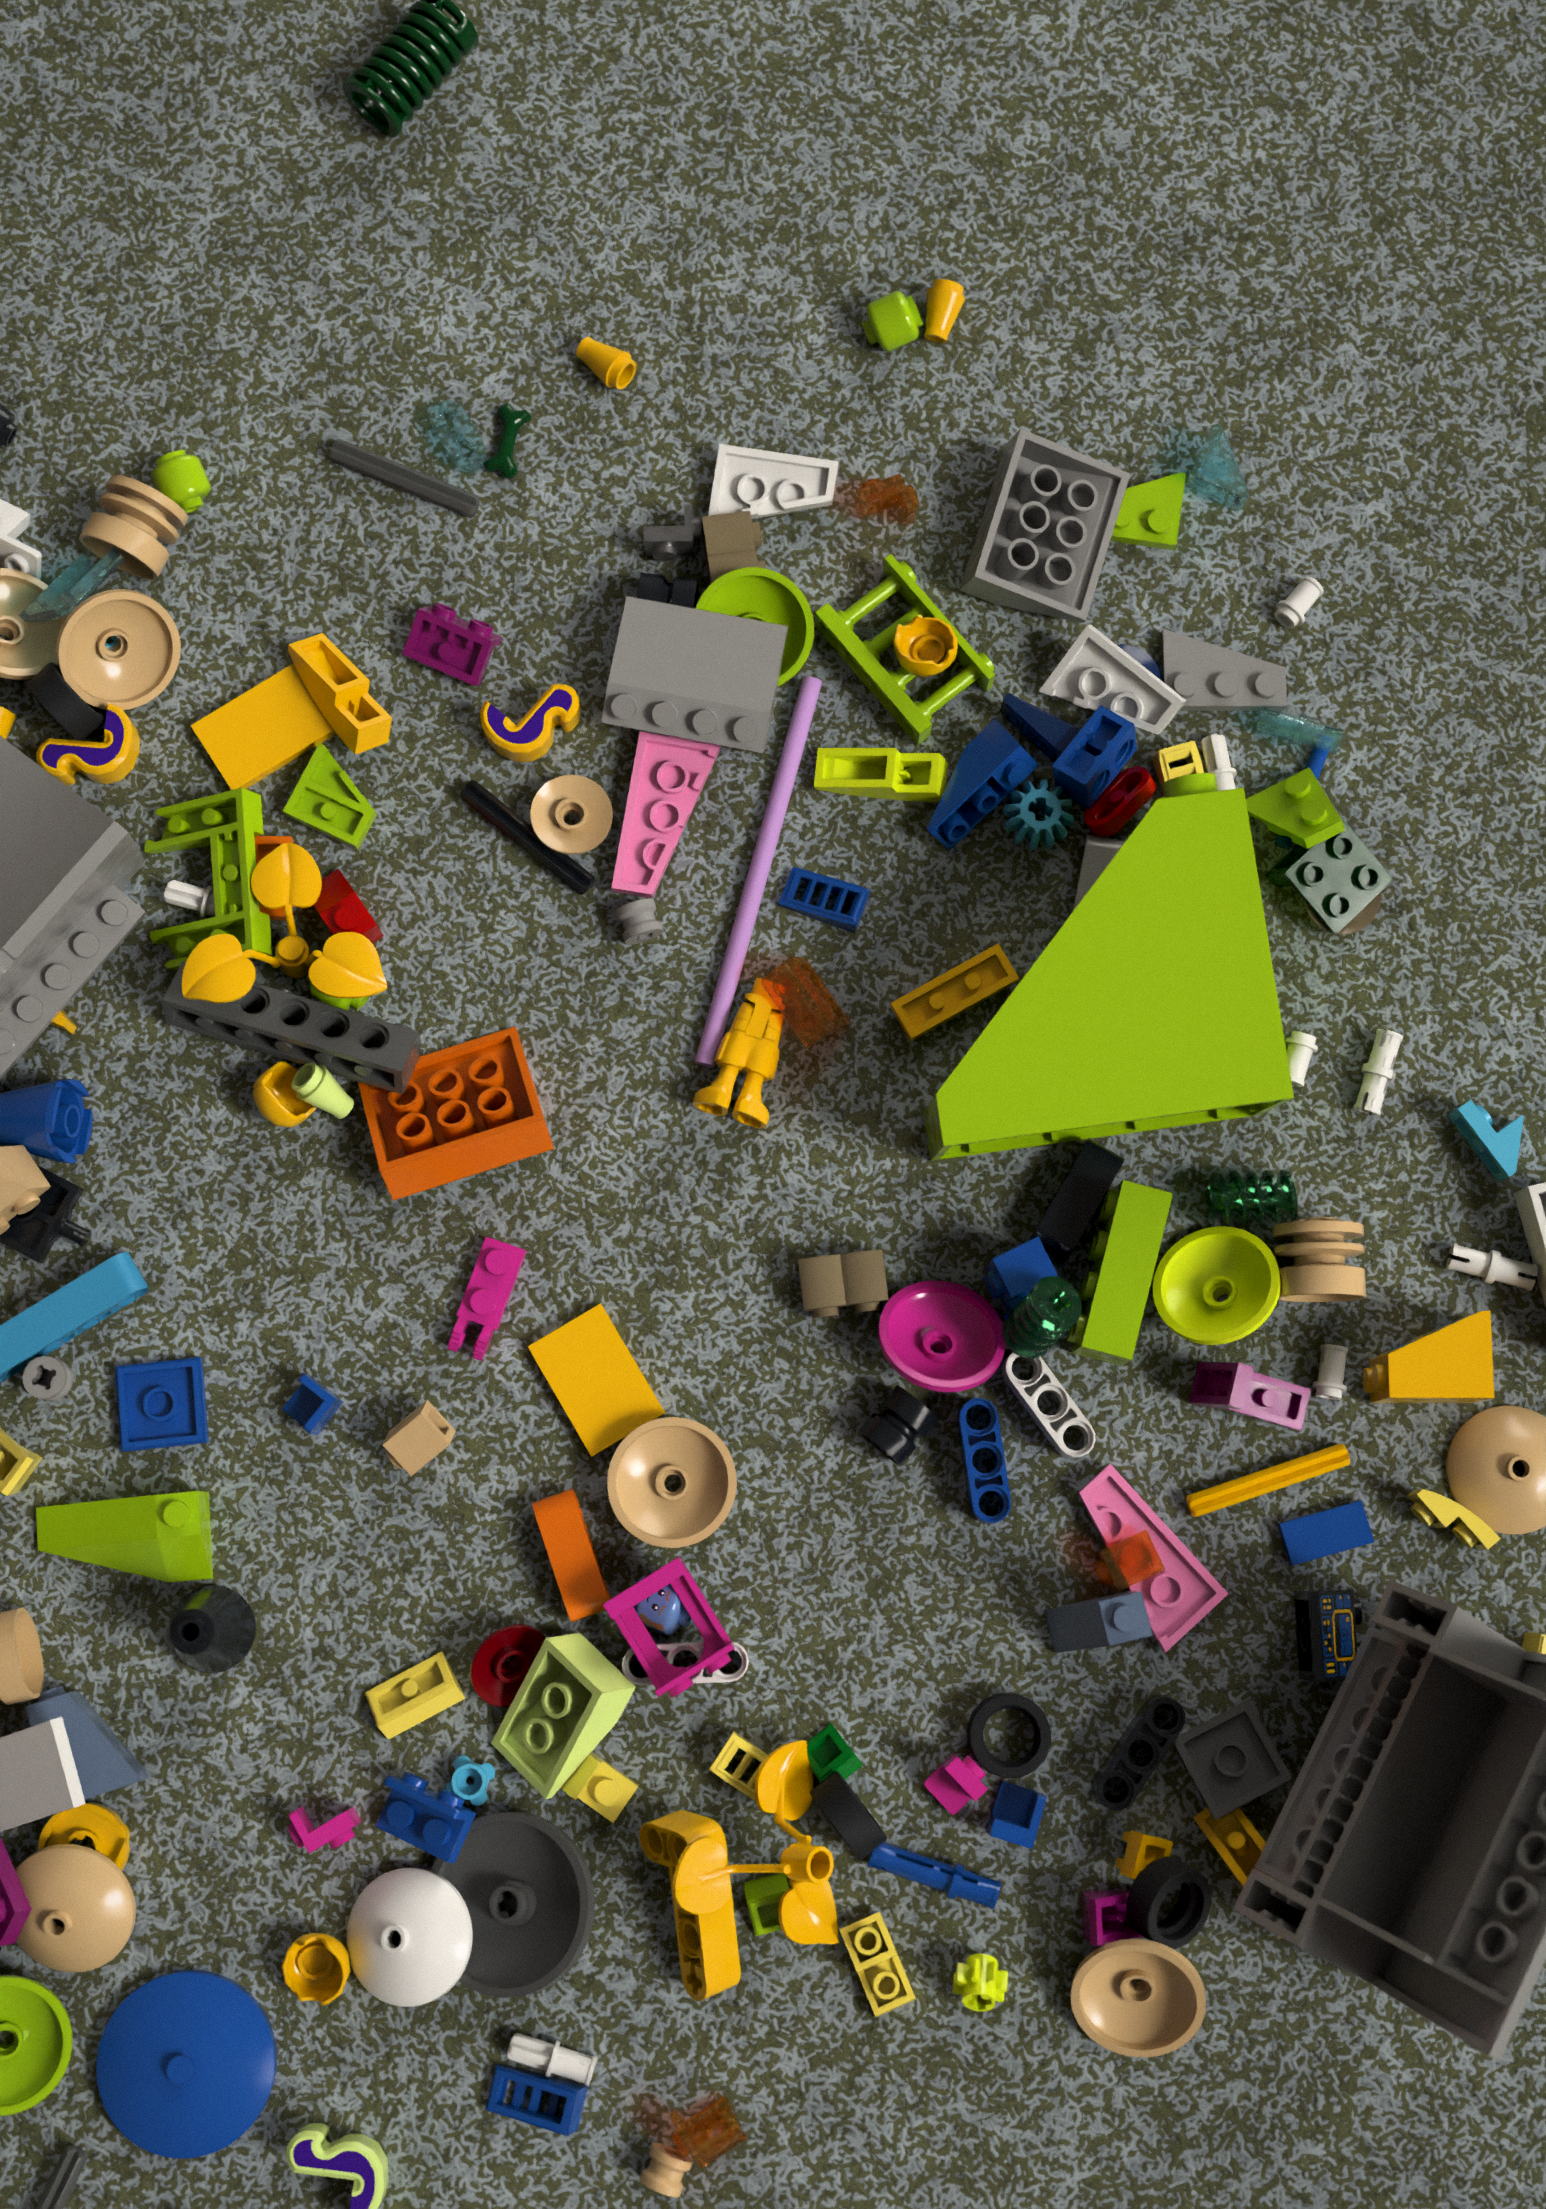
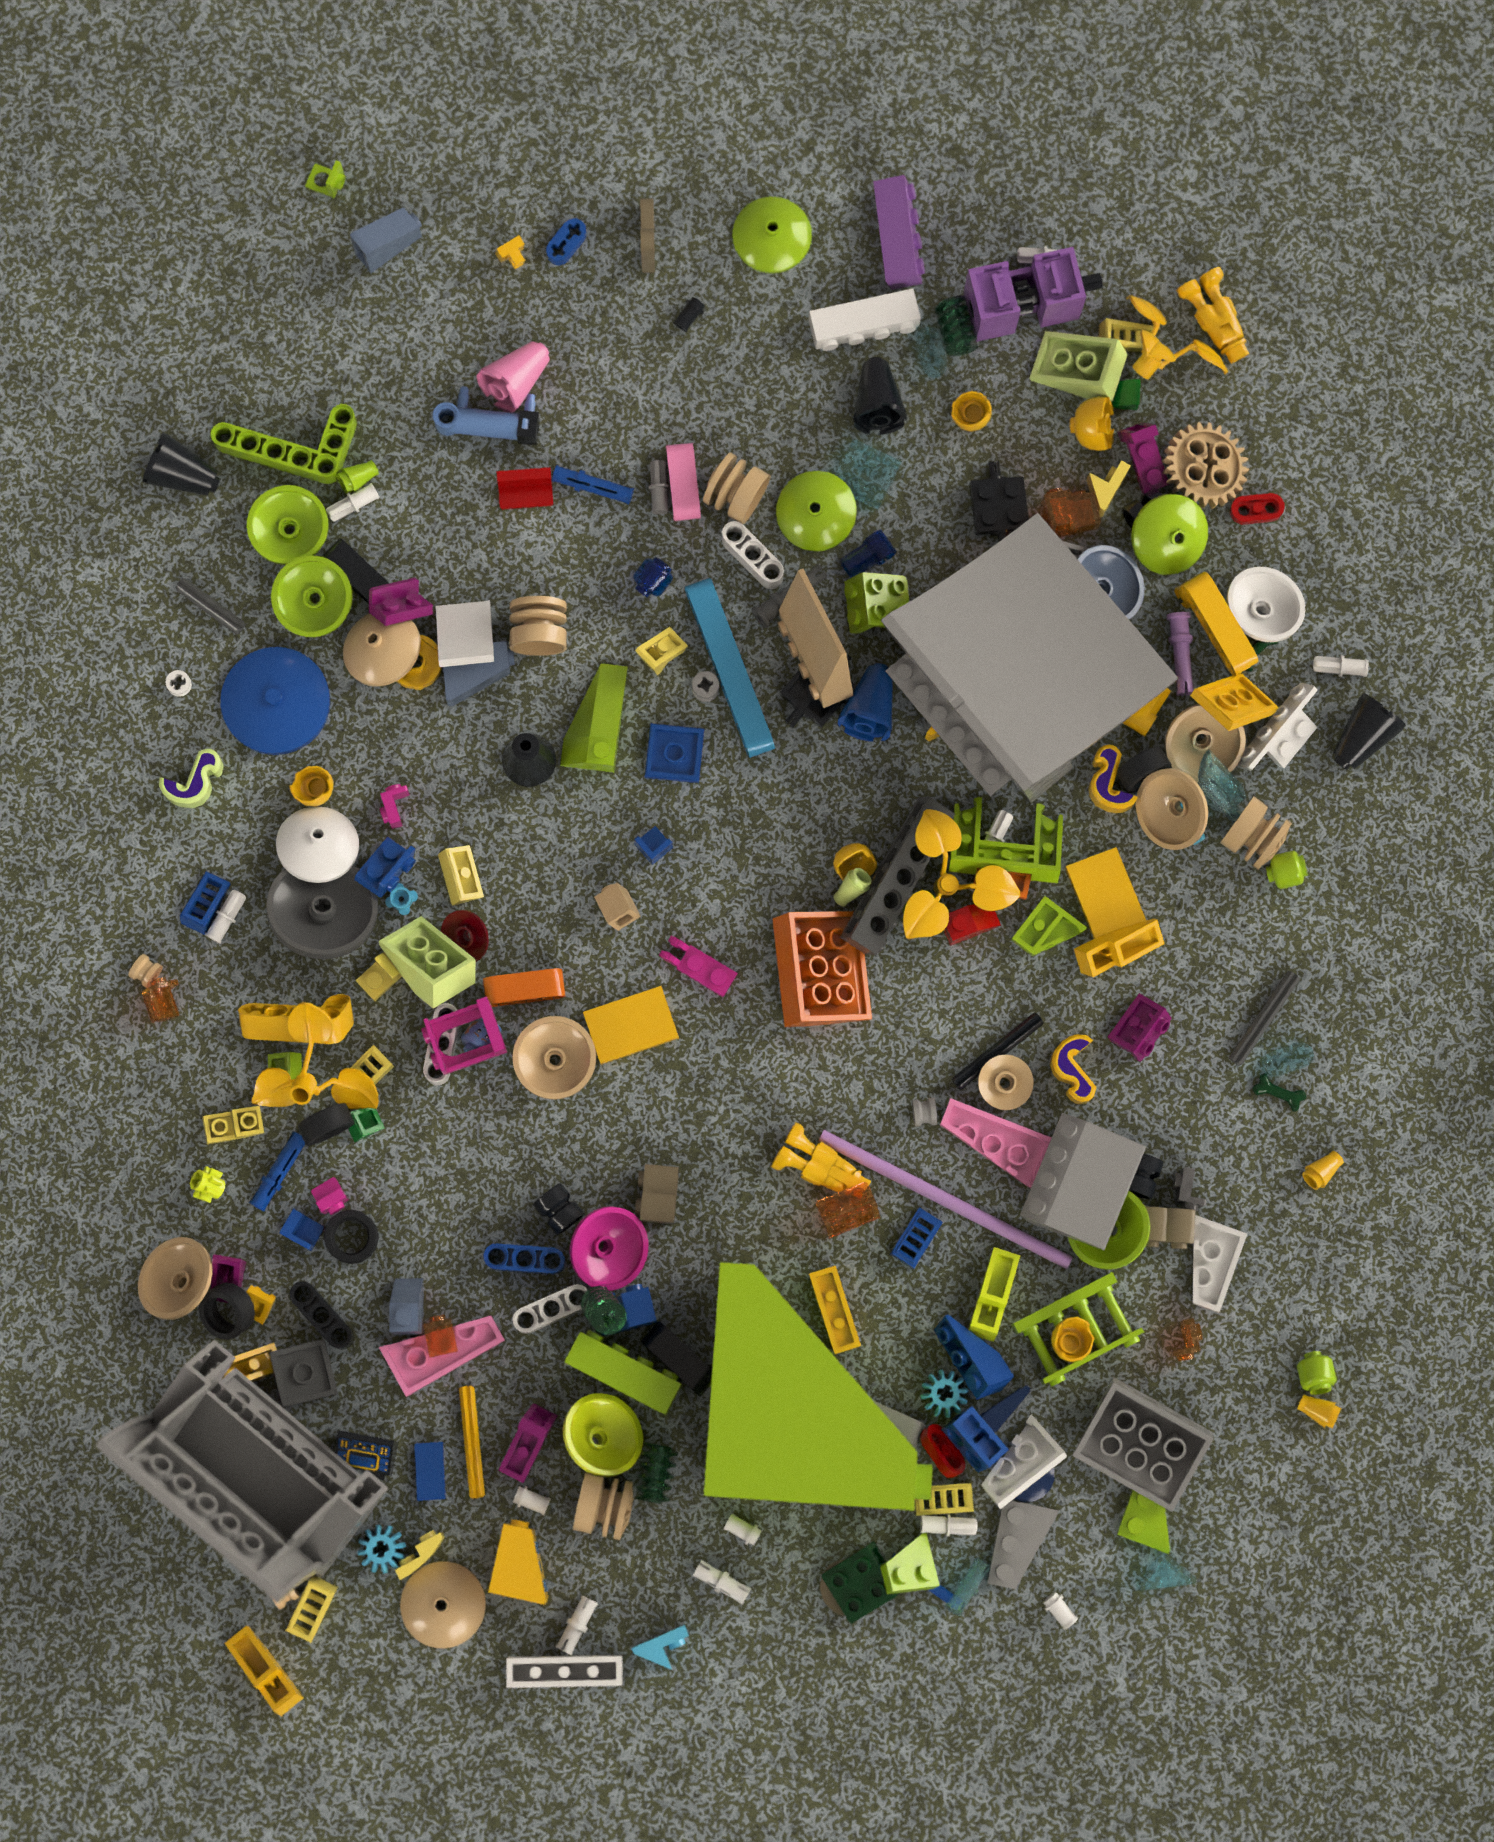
camera: 100 degrees right, 0 degrees up
(1458, 1560) = (374, 1542): none -> medium azure gear

